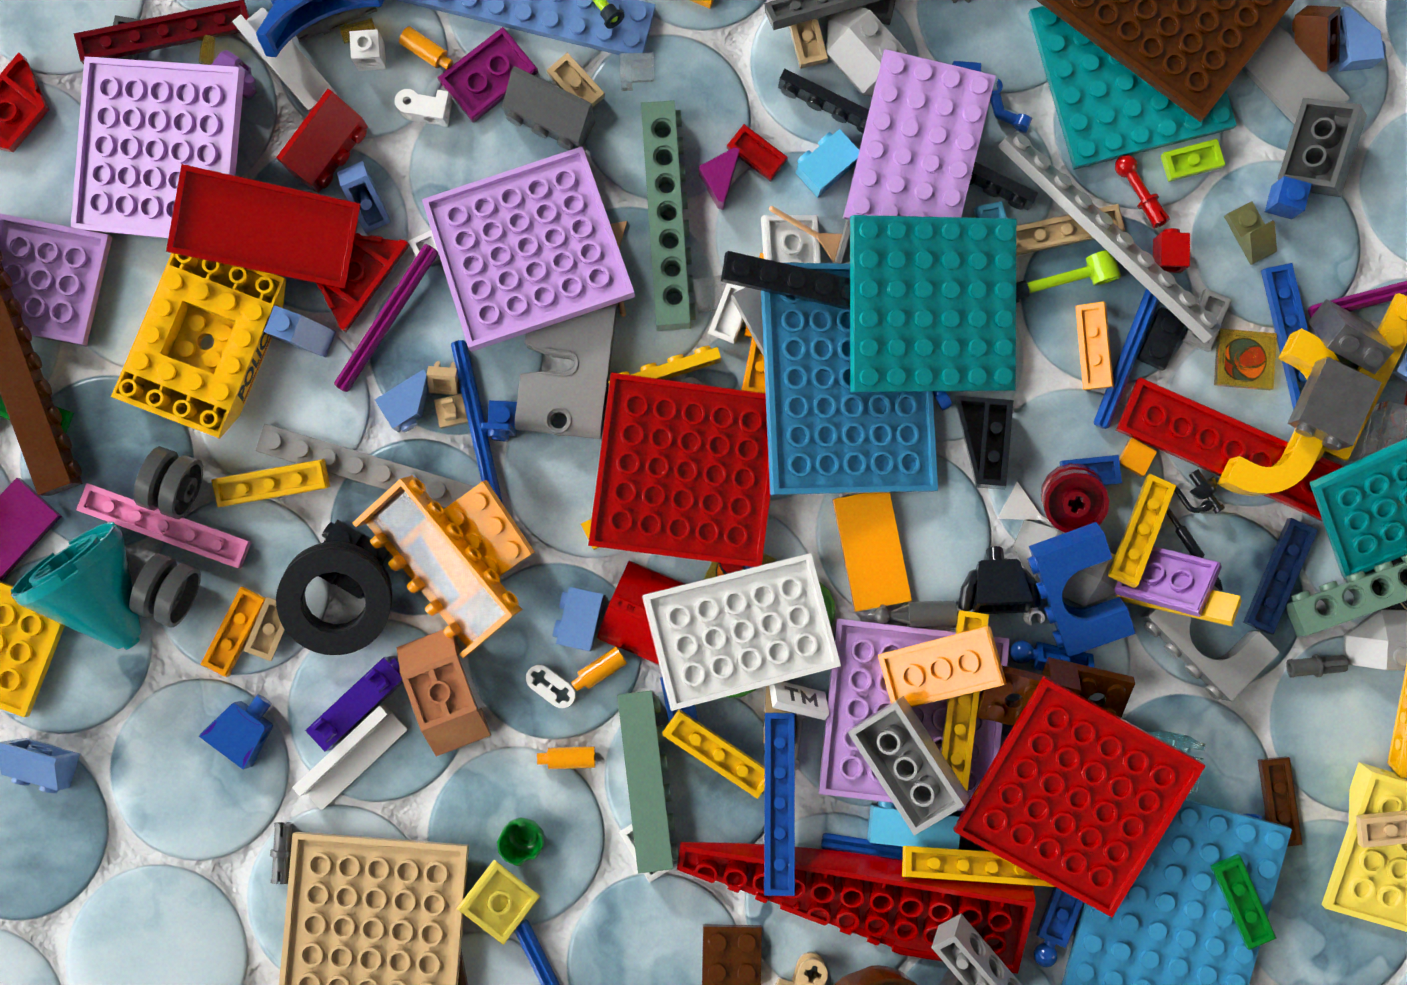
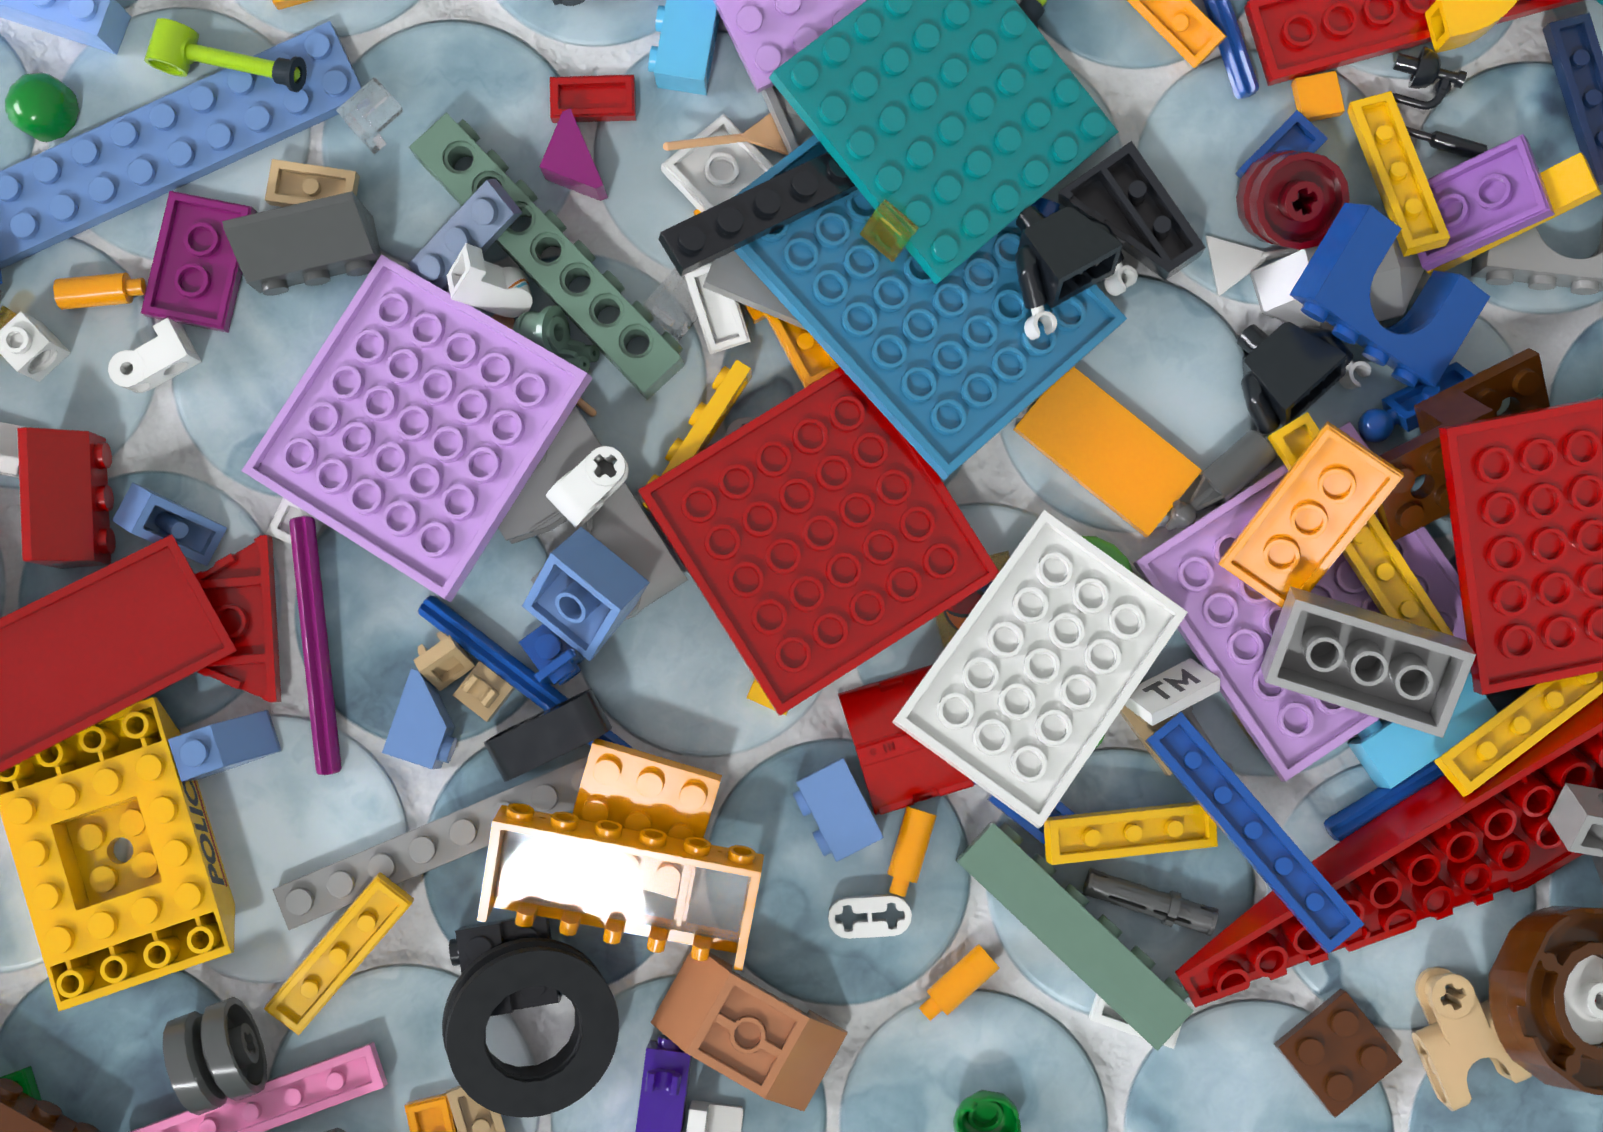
camera: 35 degrees left, 0 degrees up
(464, 459) = (548, 735): none -> black beam
(541, 402) = (584, 593): none -> medium blue slope
(583, 350) = (582, 492): none -> white piece
(623, 206) = (488, 285): none -> white leg
(632, 171) = (477, 223): none -> sand blue plate
(635, 256) = (552, 332): none -> sand green piece
(696, 793) = (1159, 904): none -> dark grey pin
(847, 344) = (889, 230): none -> clear yellow tile
(928, 432) = (1062, 258): none -> black torso

